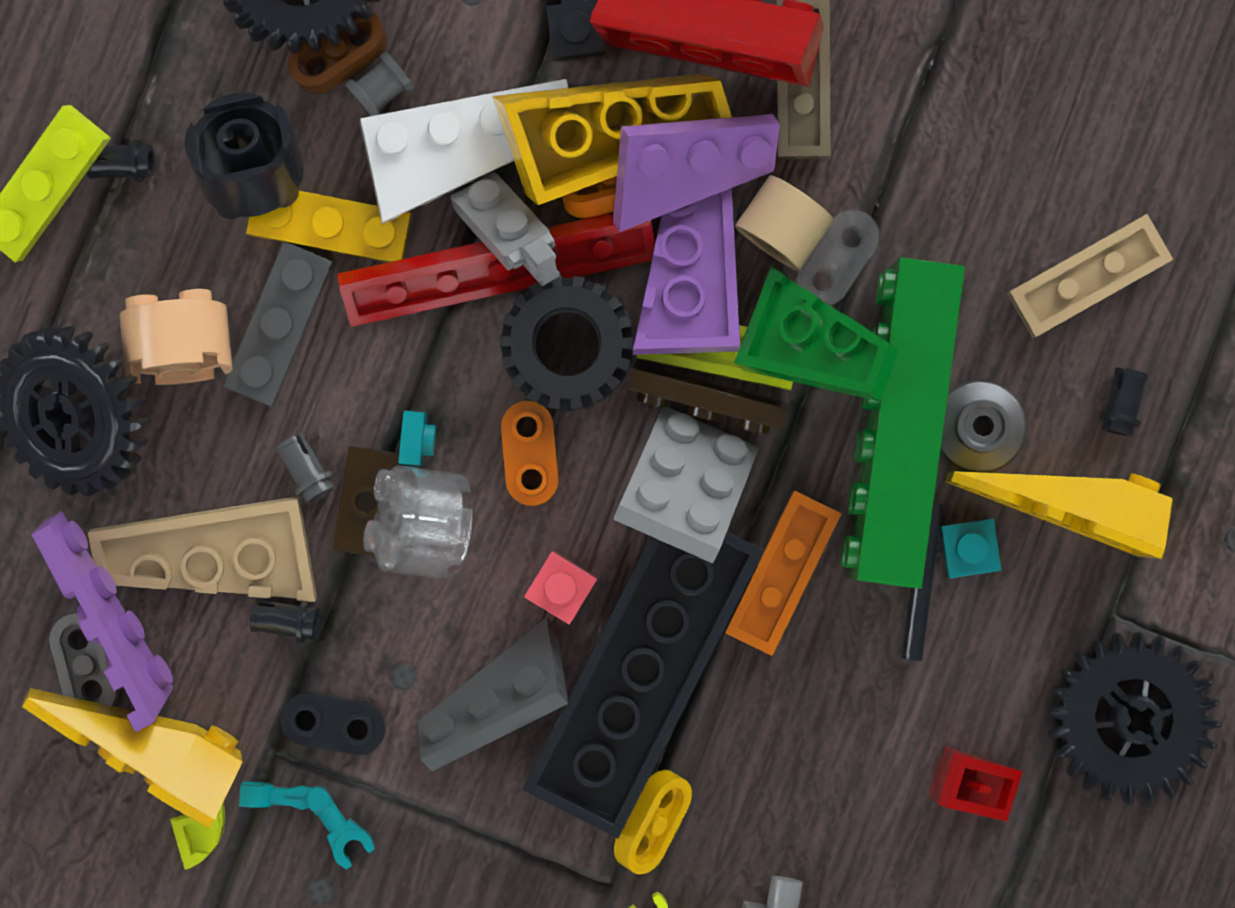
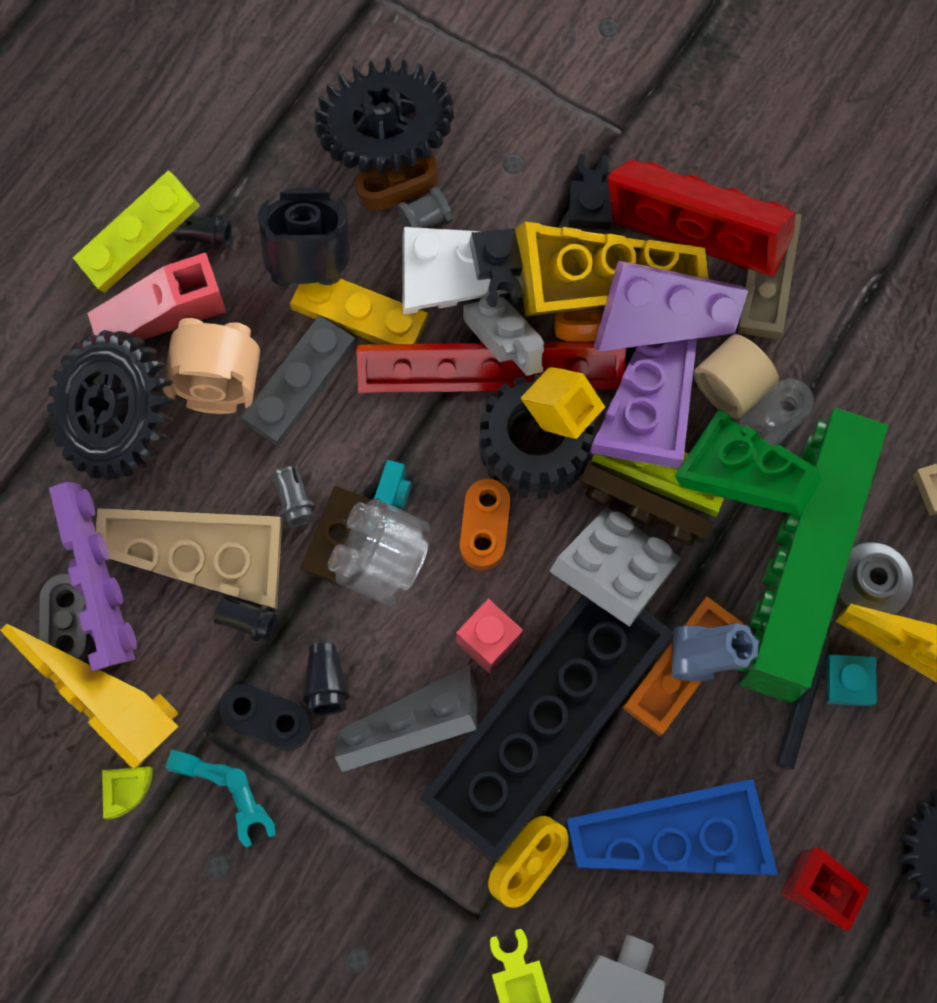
camera: 15 degrees right, 15 degrees down
(93, 270) = (162, 300): none -> coral slope
(389, 671) = (325, 681): none -> black cone
(478, 139) = (498, 259): none -> black plate
(590, 309) = (563, 402): none -> yellow panel
(804, 563) = (704, 650): none -> sand blue piece
(817, 755) = (688, 833): none -> blue wing

